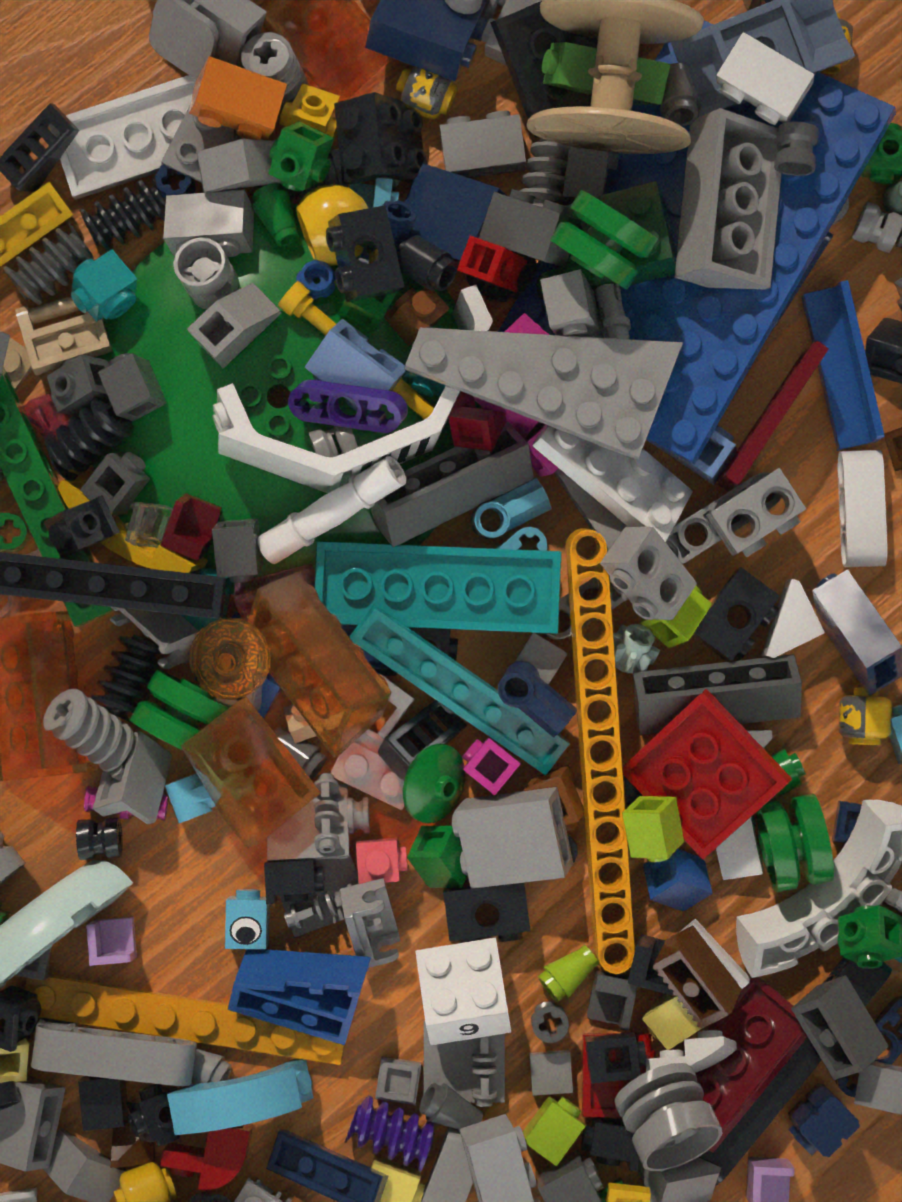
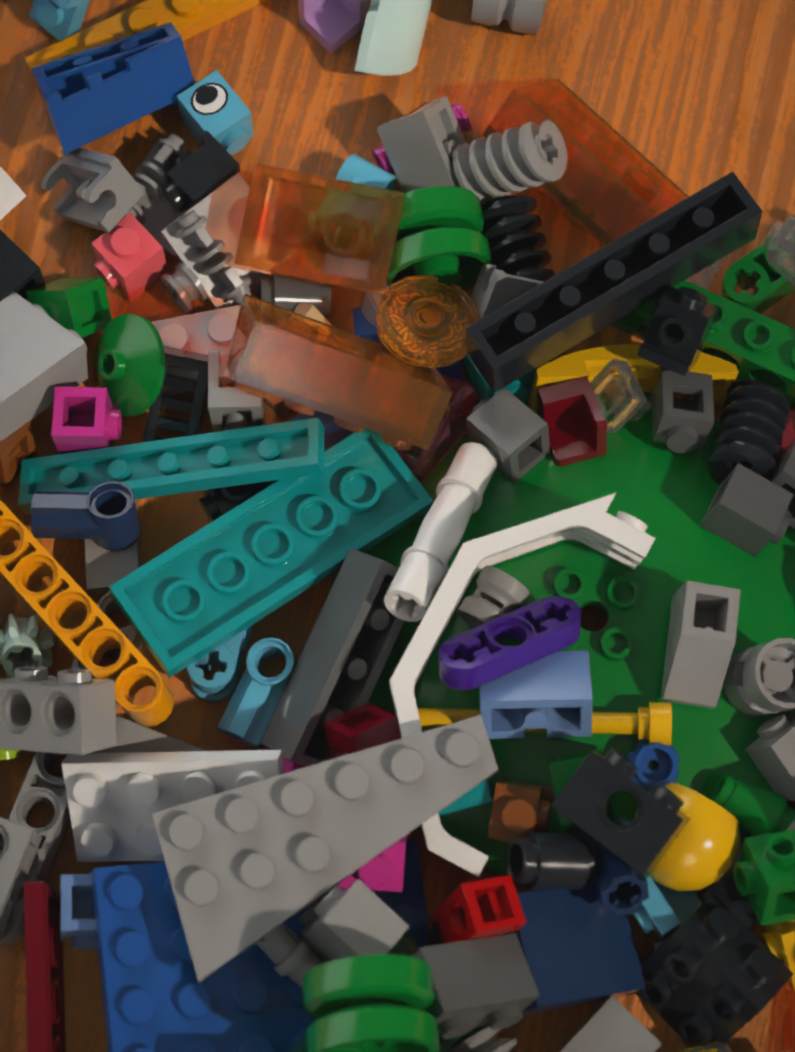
camera: 140 degrees right, 15 degrees down
(99, 838) = (423, 84): black wheel -> none

